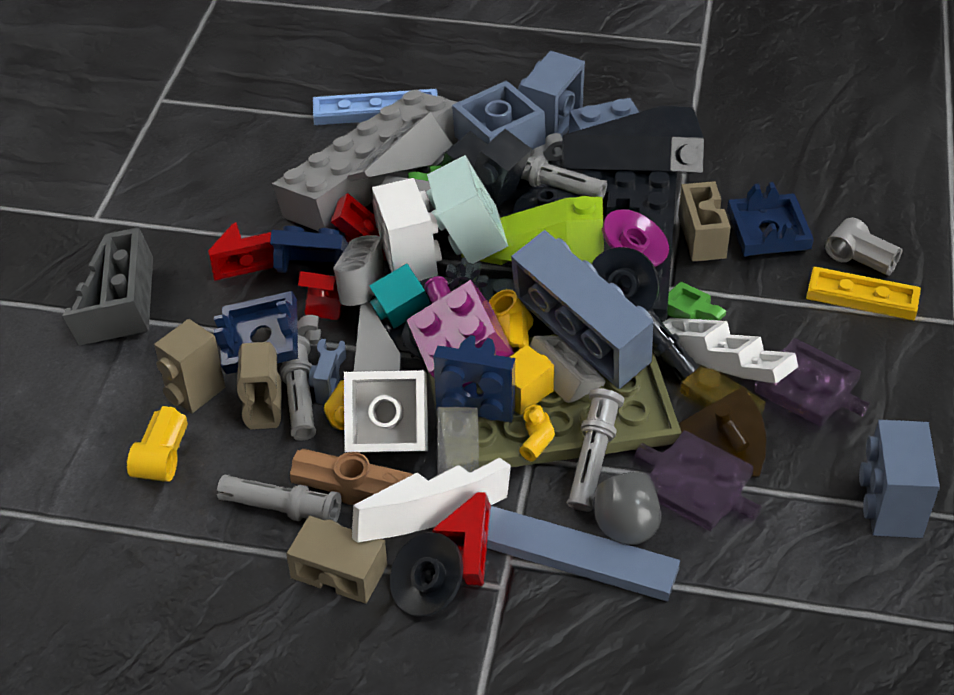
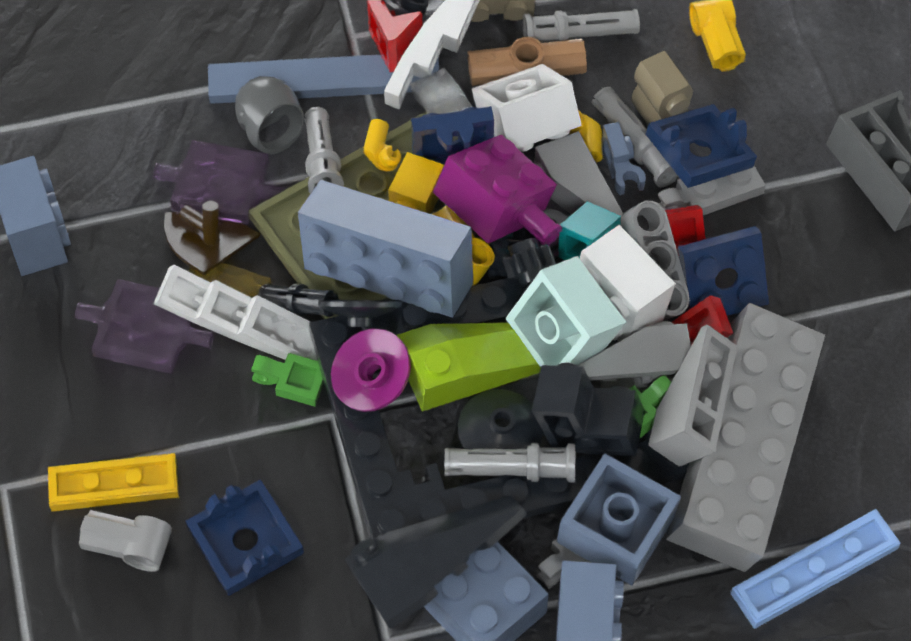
camera: 155 degrees right, 15 degrees up
(189, 366) = (743, 84): dark tan brick -> none
(238, 255) = (804, 260): red slope -> none
(703, 221) = (316, 480): dark tan brick -> none

